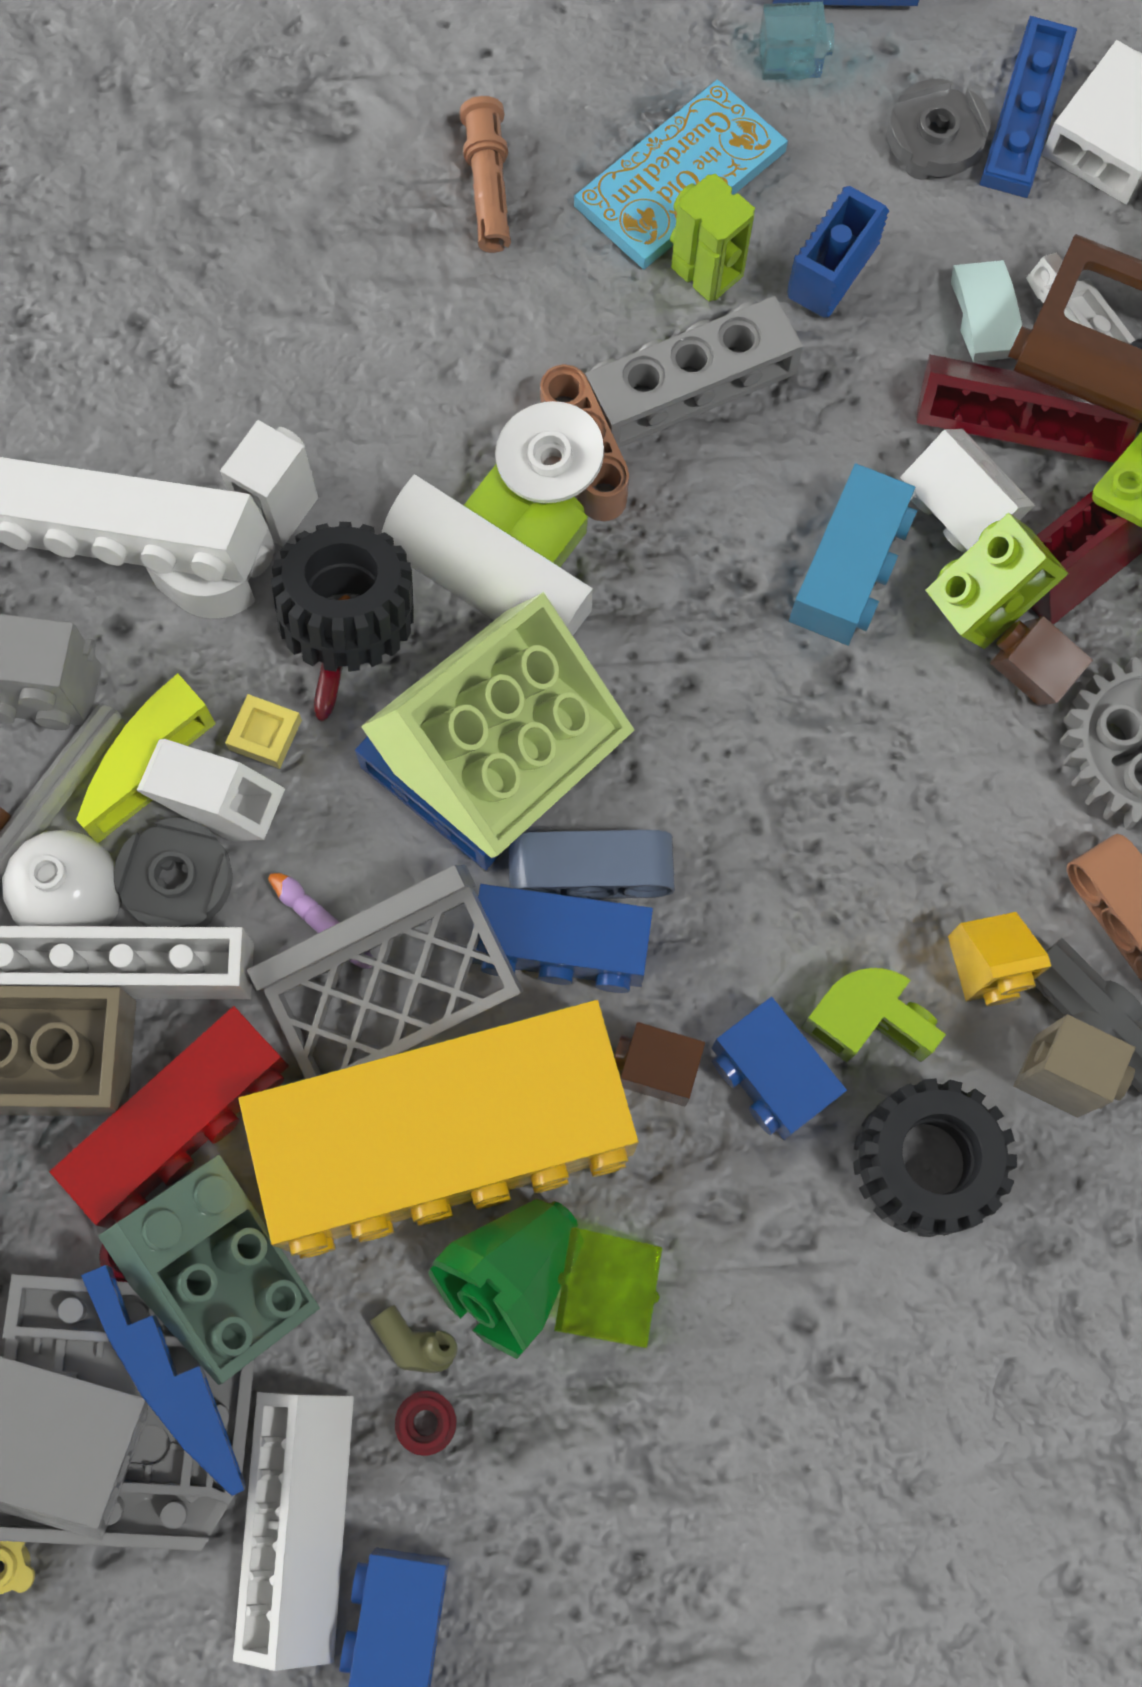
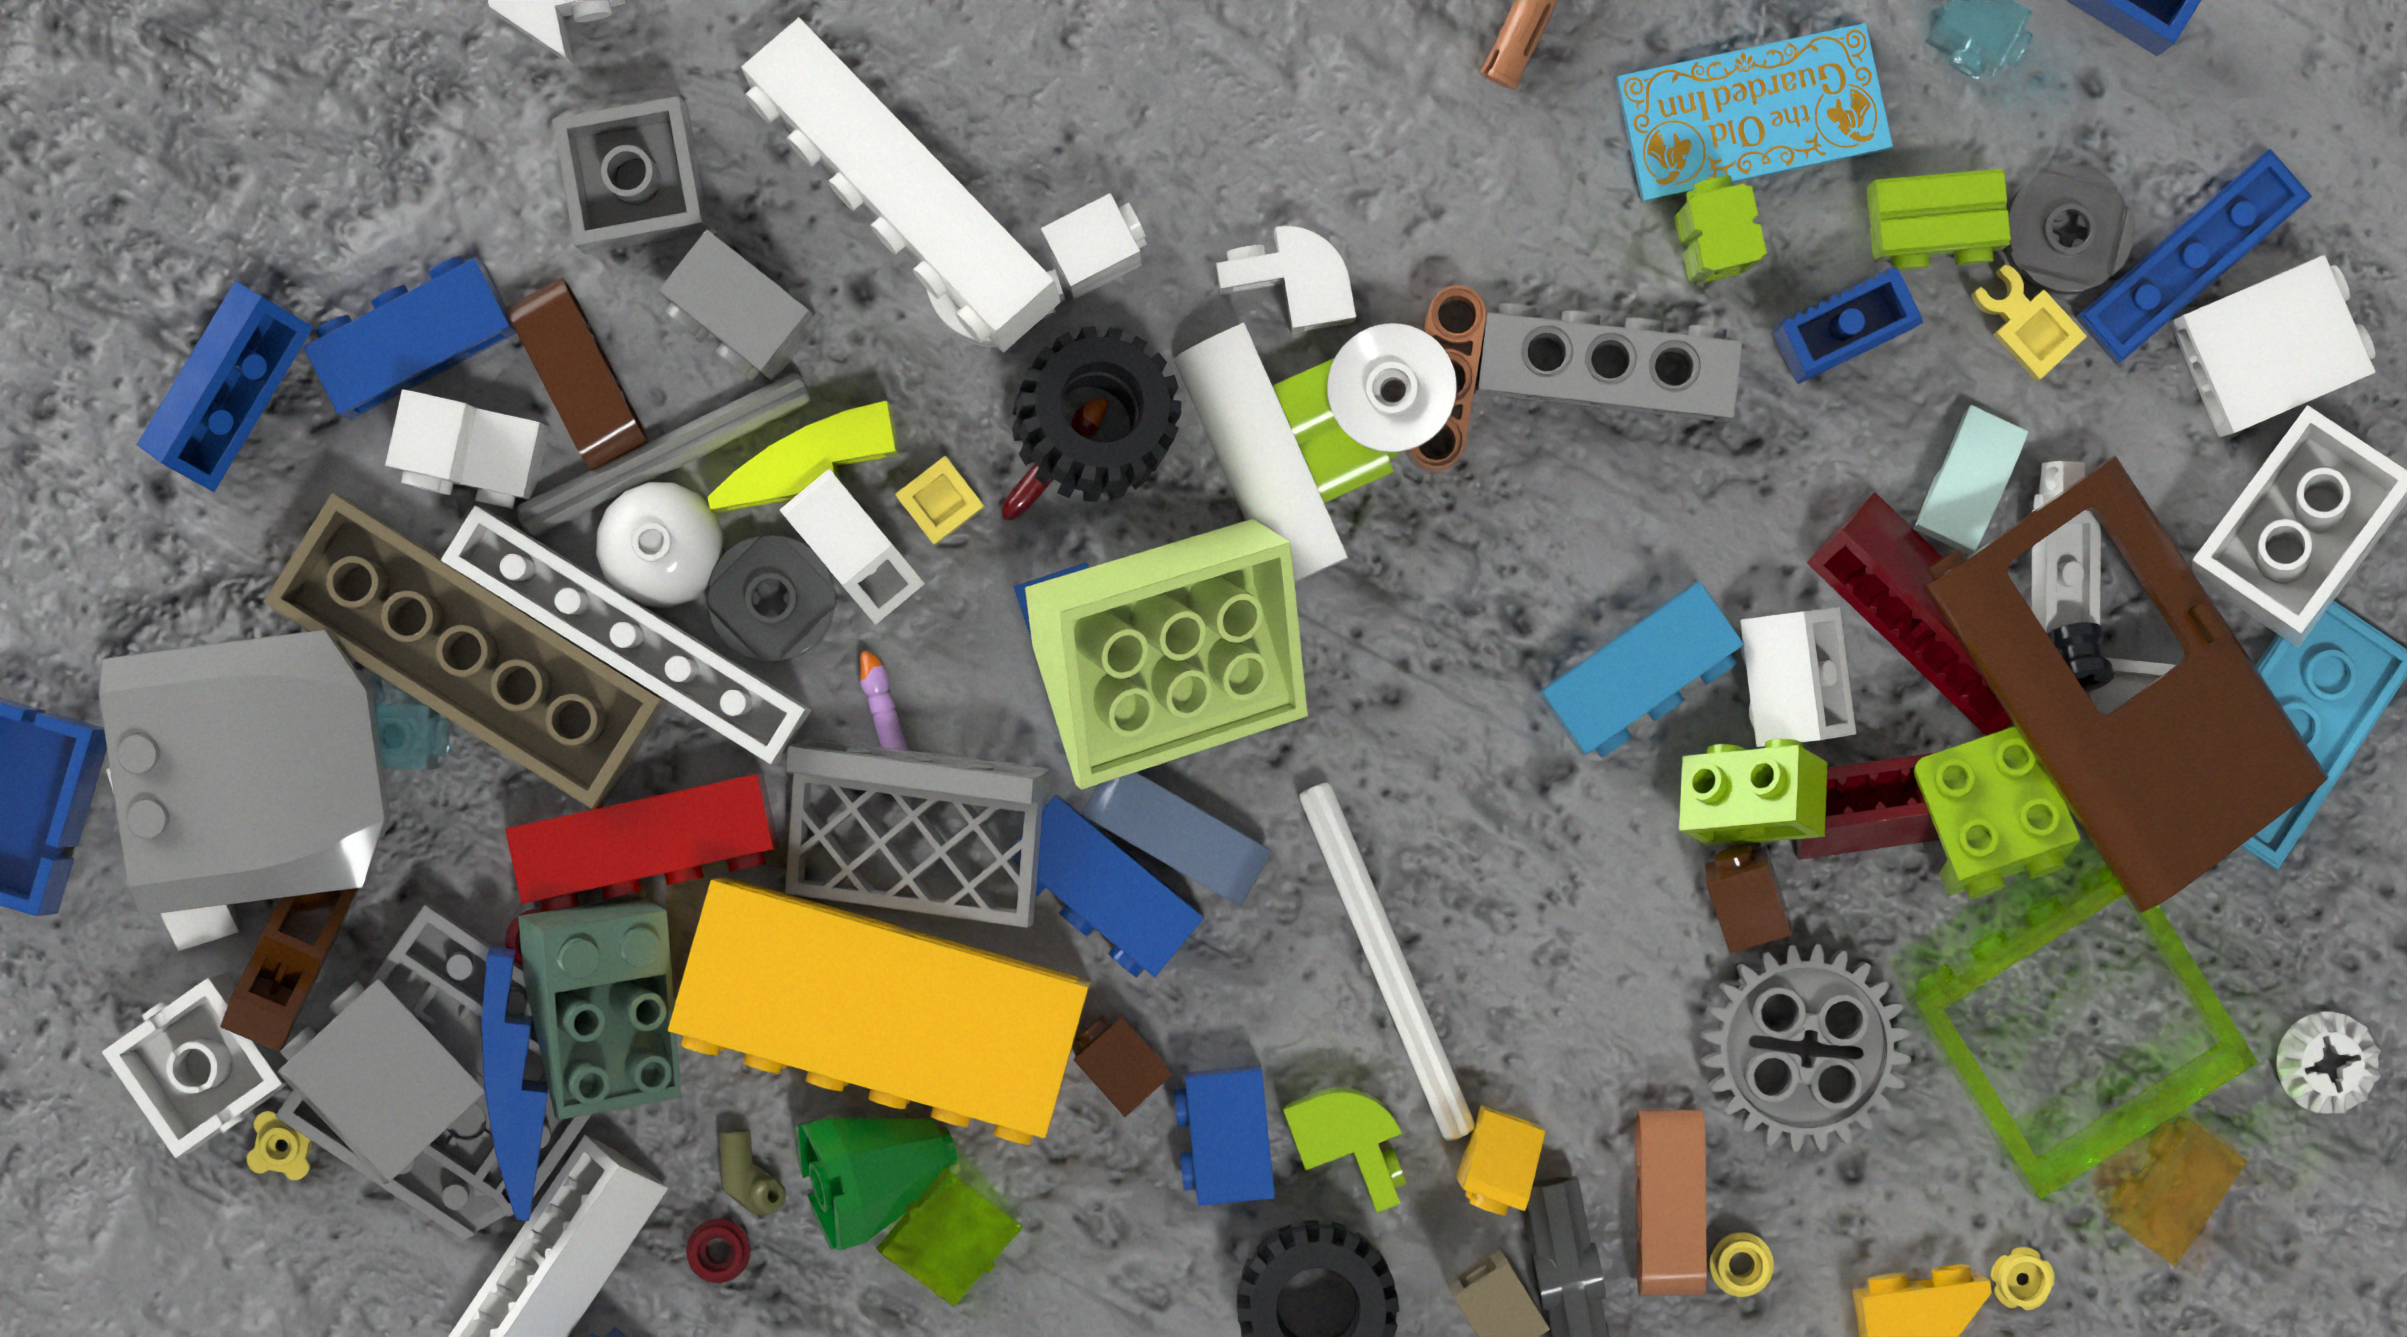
camera: 30 degrees right, 15 degrees up
(434, 426) = (1311, 275): none -> white brick
(812, 870) = (1387, 961): none -> white axle
(855, 153) = (1938, 217): none -> lime brick
(961, 197) = (2035, 330): none -> light yellow plate

